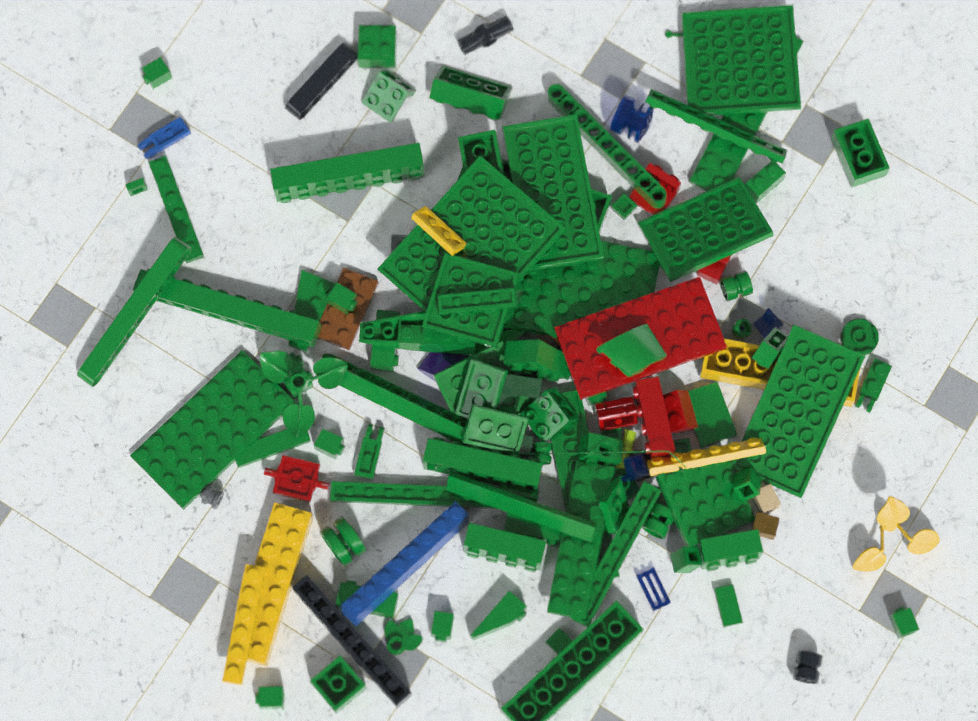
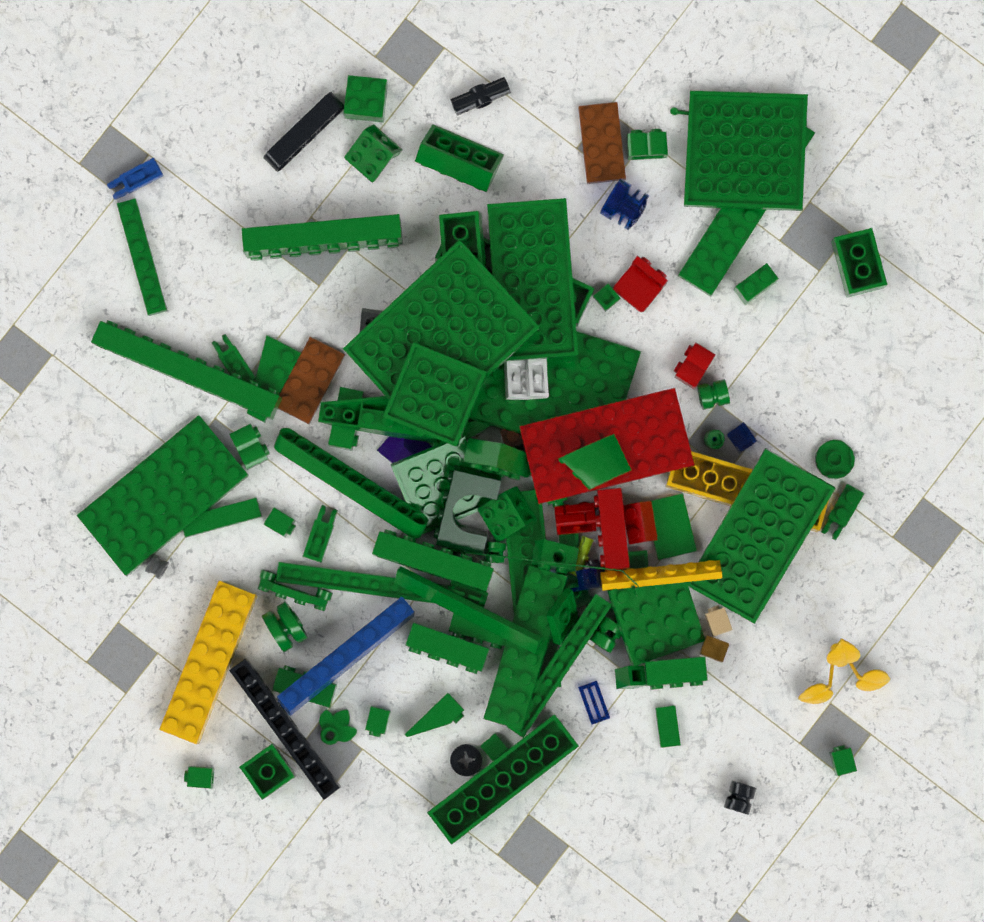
camera: 10 degrees right, 10 degrees up
(134, 311) = (90, 367): green beam -> none
(136, 187) = (102, 230): green tile -> none
(156, 73) = (131, 107): green brick -> none
(243, 624) = (177, 704): yellow plate -> none
(270, 294) = (233, 360): none -> green hinge
(296, 478) = (243, 555): red plate -> none
(322, 502) = (319, 600): none -> green plate
(329, 373) = (285, 452): green plant -> none
(342, 299) = (305, 372): green brick -> none
(438, 230) = (409, 317): yellow plate -> none
(477, 301) = (441, 397): green tile -> none
(481, 387) = (438, 488): green tile -> none
(495, 429) = (448, 528): green tile -> none
(538, 649) = (459, 753): none -> black gear
(555, 285) = (526, 379): none -> white slope
(603, 67) = (602, 143): none -> dark orange plate
(610, 153) = (597, 240): green beam -> none
(647, 65) = (647, 145): none -> green brick
(705, 229) = (687, 332): green plate -> none
(722, 129) = (711, 221): green plate -> none
(747, 484) = (700, 606): green brick -> none
(770, 348) = (740, 468): green slope -> none

